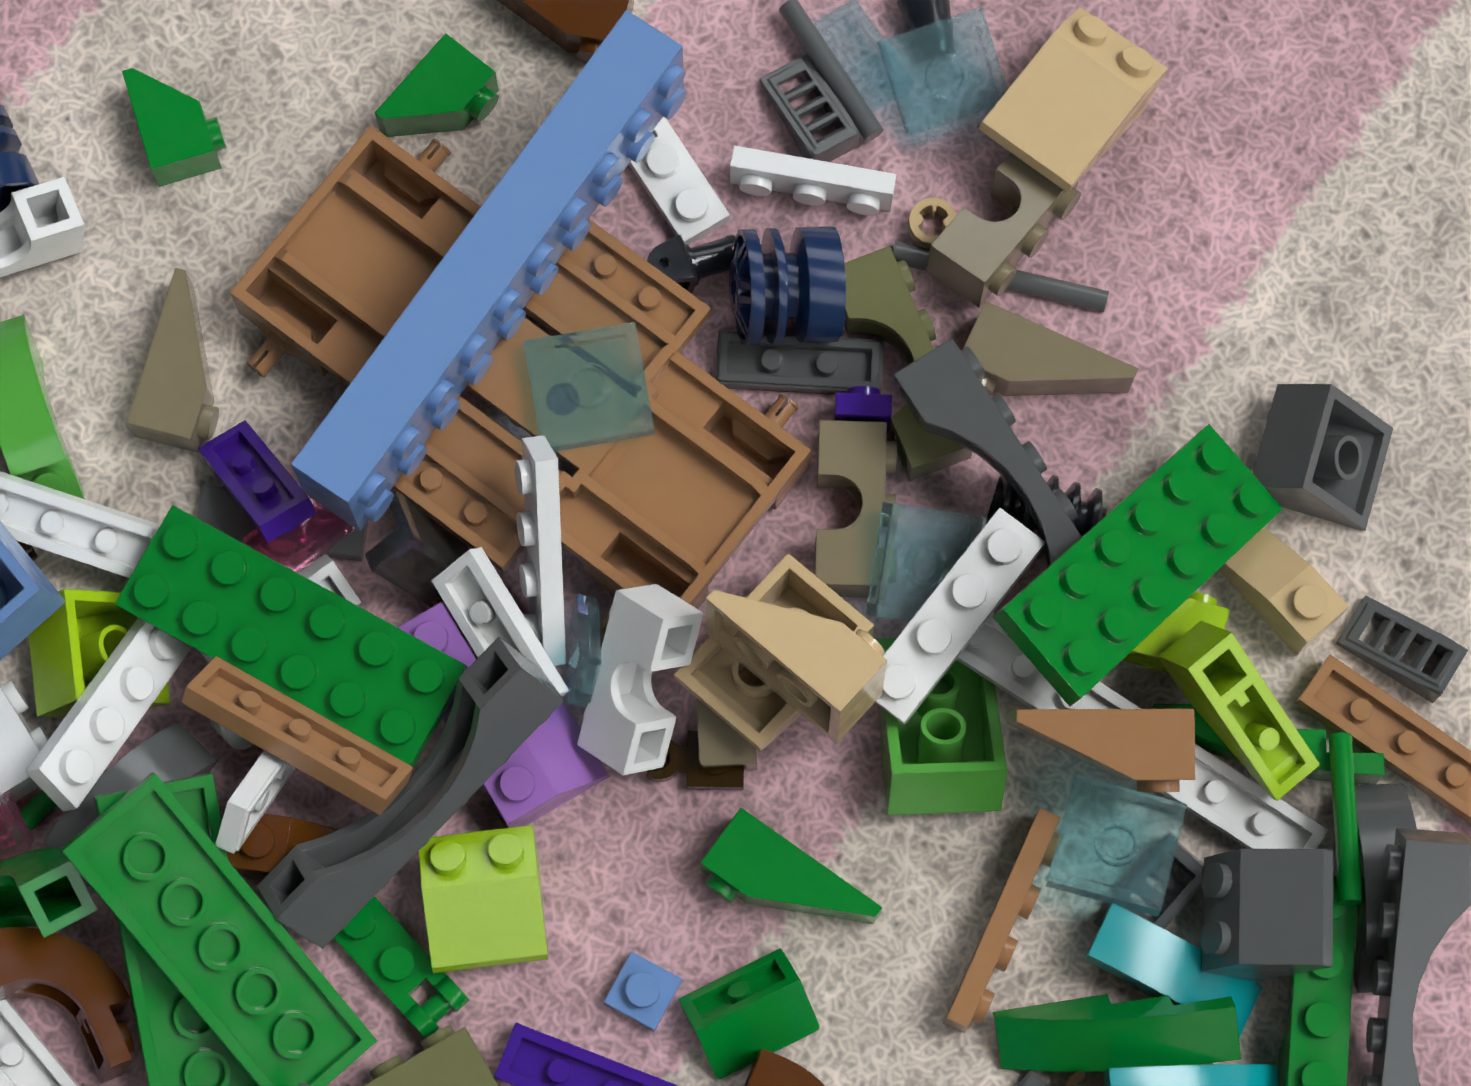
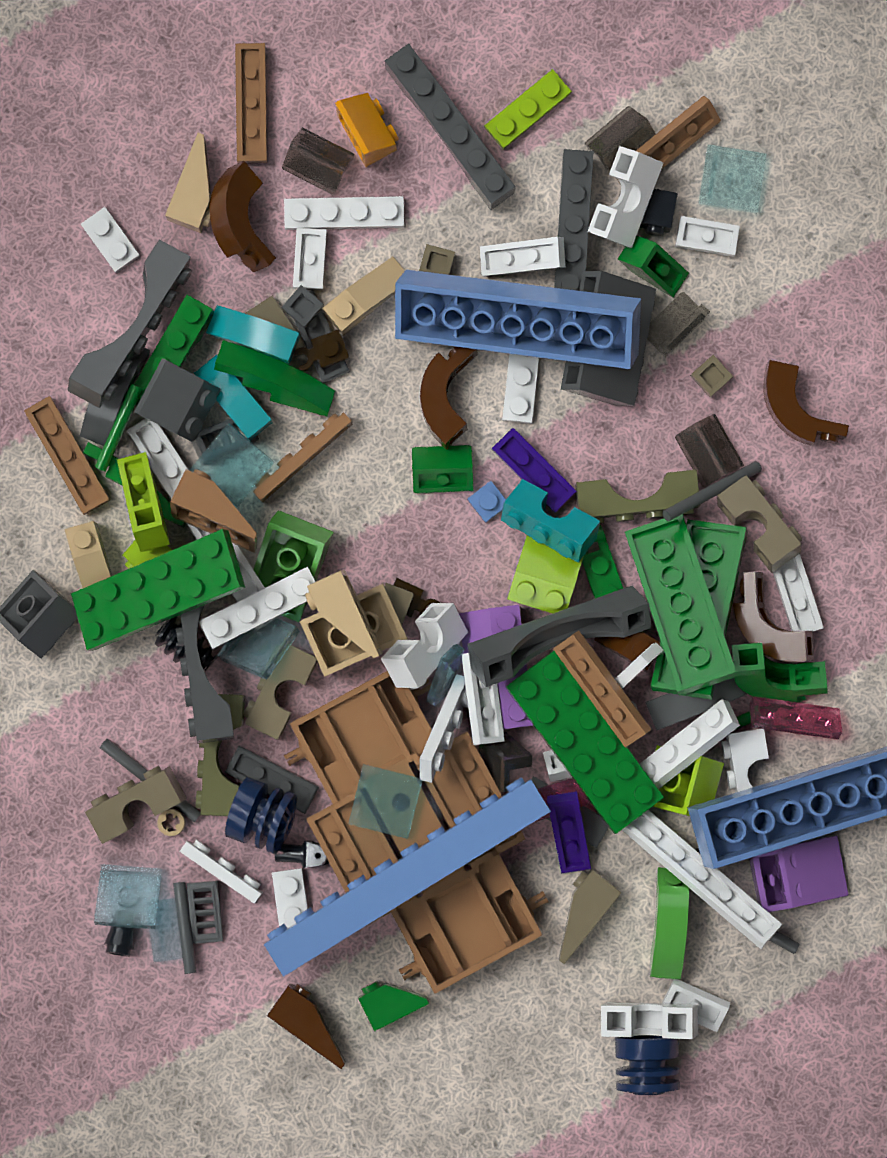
camera: 155 degrees left, 10 degrees up
(173, 129) = (535, 1045): green slope -> none
(471, 982) = (567, 535): none -> teal arch
(774, 873) = (402, 529): green slope -> none
(863, 404) = (251, 740): dark purple plate -> none
(1034, 360) = (161, 731): dark tan slope -> none
(1074, 99) = (71, 849): tan slope -> none
(1429, 639) = (32, 480): dark grey slope -> none

